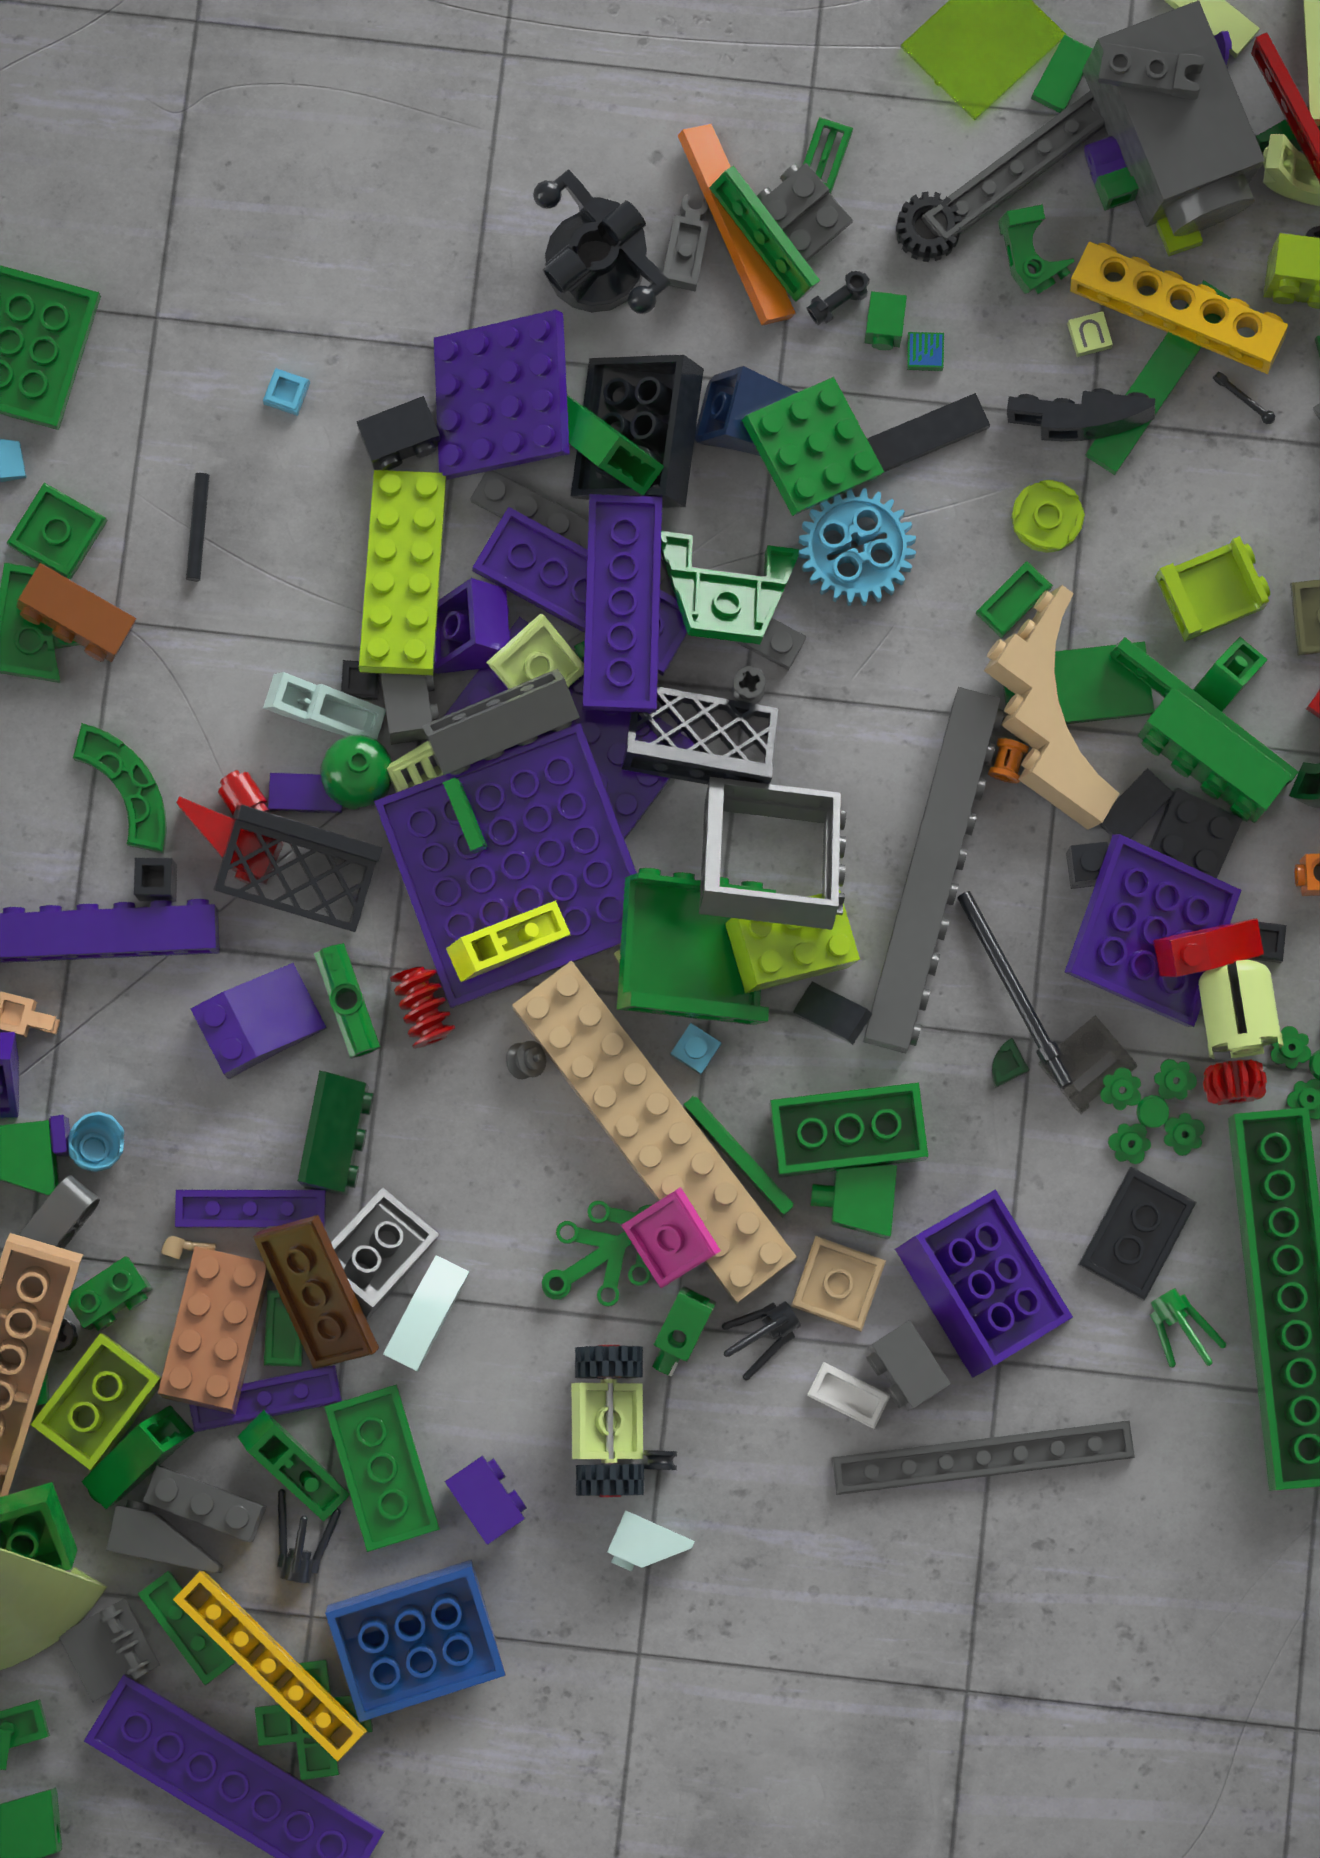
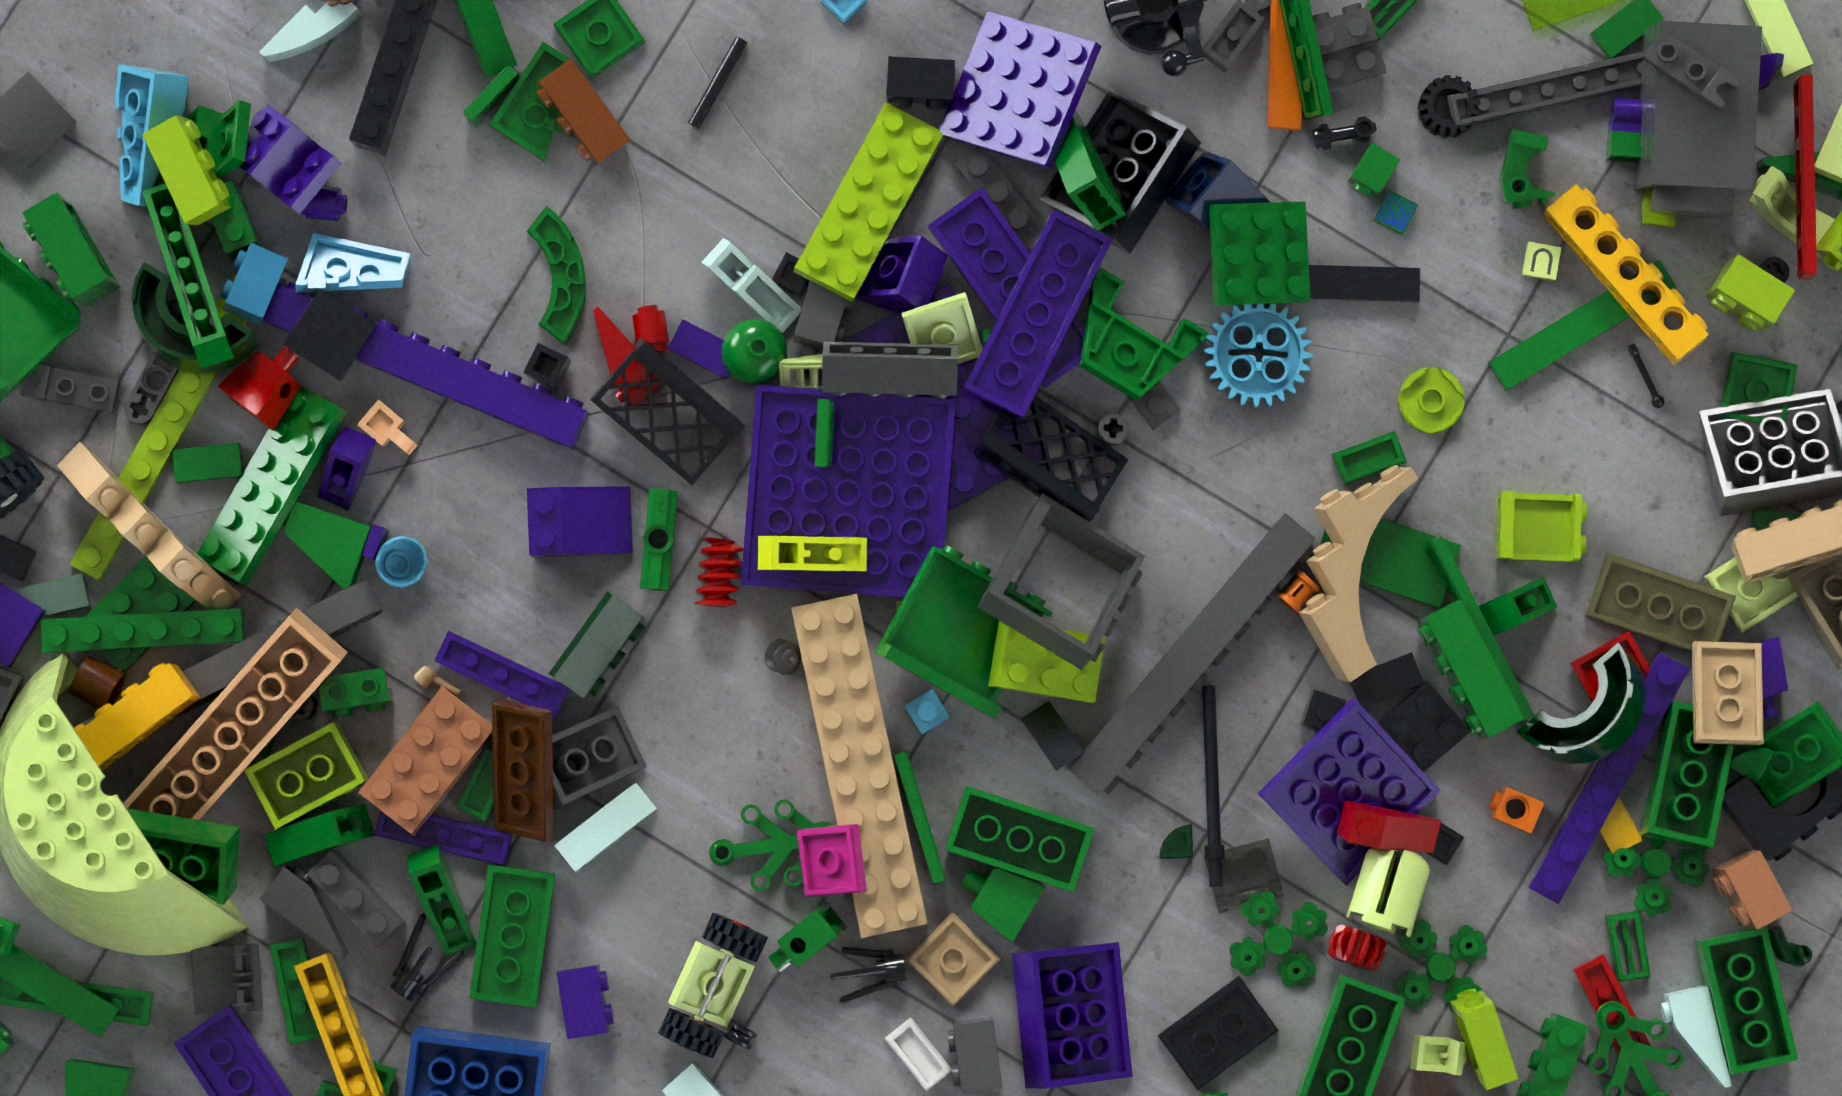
camera: 30 degrees right, 5 degrees up
(1096, 417) = (1511, 336): black slope -> none

